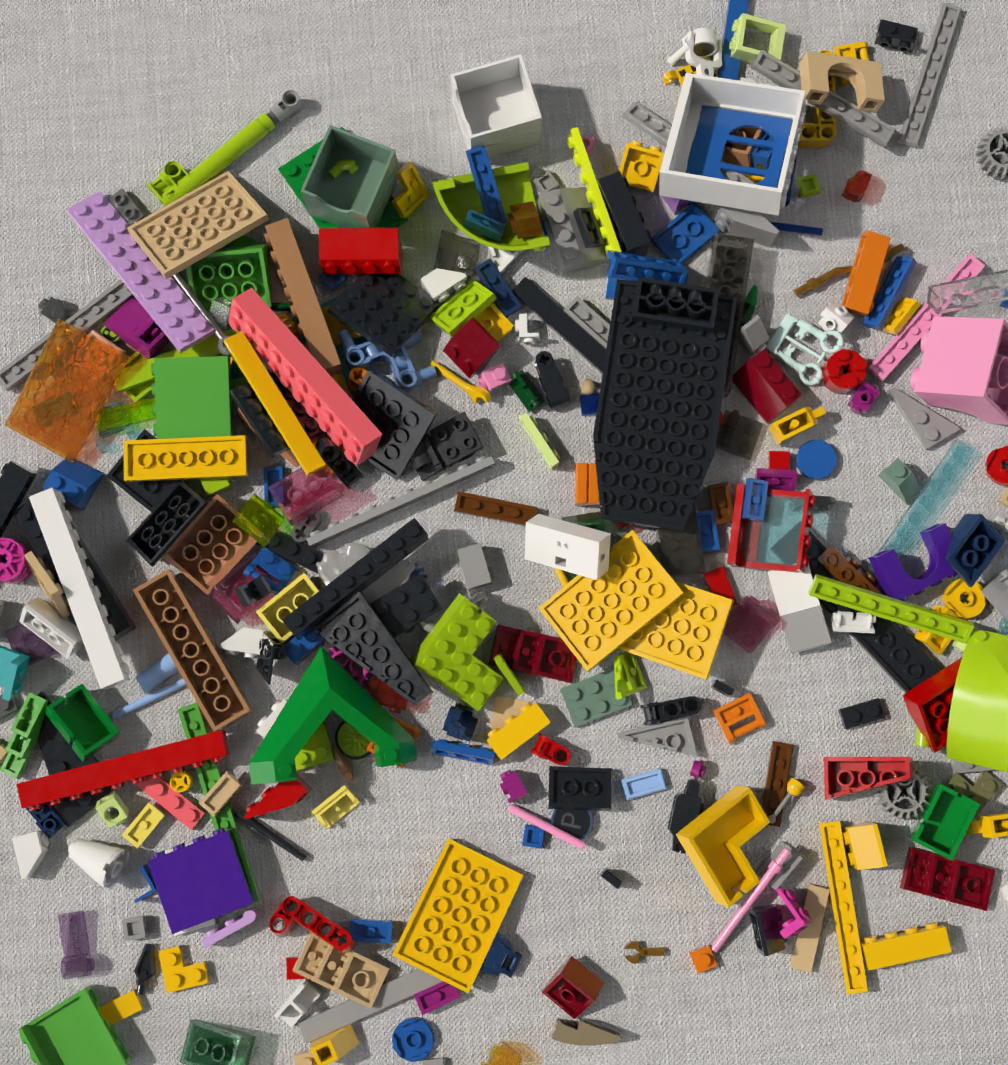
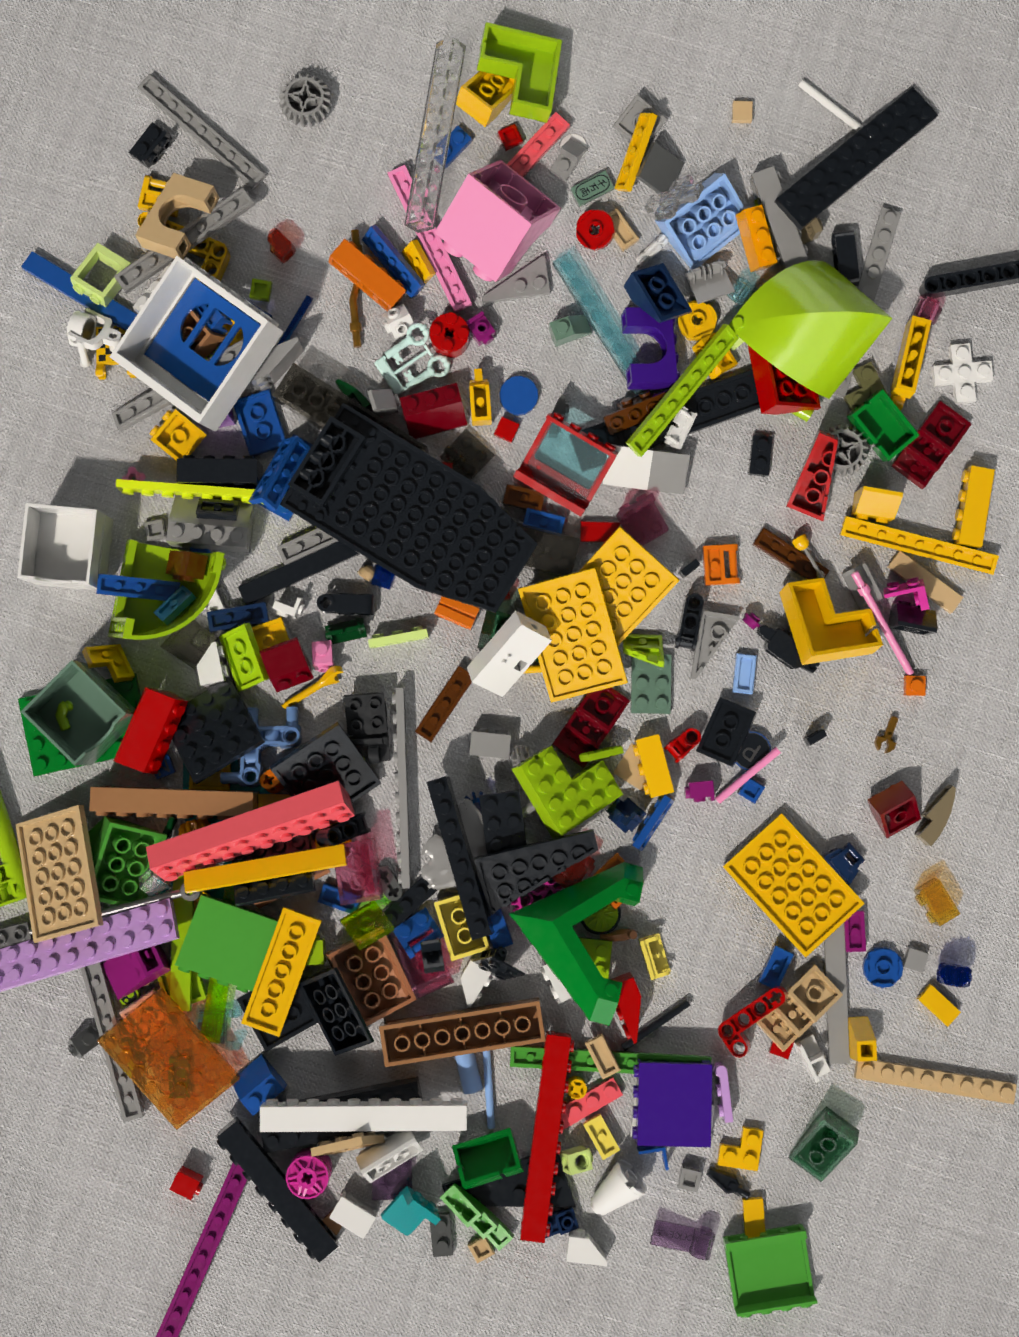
camera: 75 degrees left, 5 degrees up
(755, 499) = (534, 466): blue plate -> none
(778, 478) = (522, 440): magenta plate -> none

